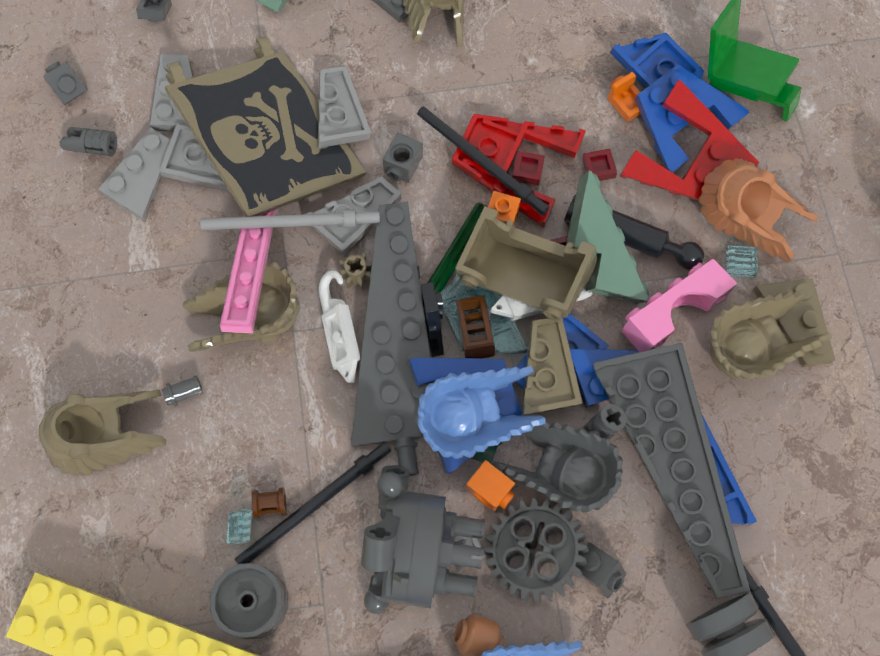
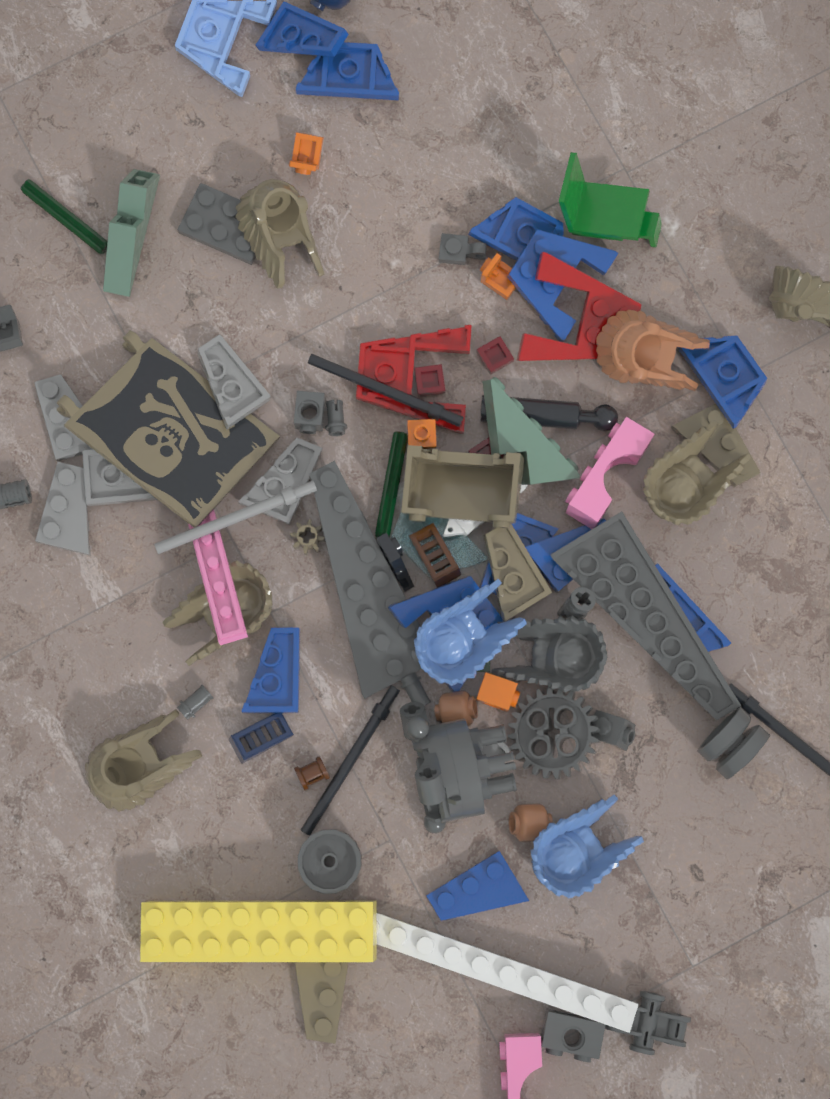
camera: 20 degrees left, 10 degrees up
(223, 460) = (241, 753): none -> dark blue slope
(239, 526) = (294, 802): clear light blue tile -> none
(272, 396) = (277, 677): none -> blue wing
(338, 329) = (312, 597): white plate -> none
(423, 179) = (335, 417): none -> dark grey pin
(444, 484) = (456, 706): none -> nougat head
(595, 64) = (455, 249): none -> dark grey plate
(741, 261) = (653, 405): clear light blue tile -> none
(826, 254) = (727, 375): none -> blue wing

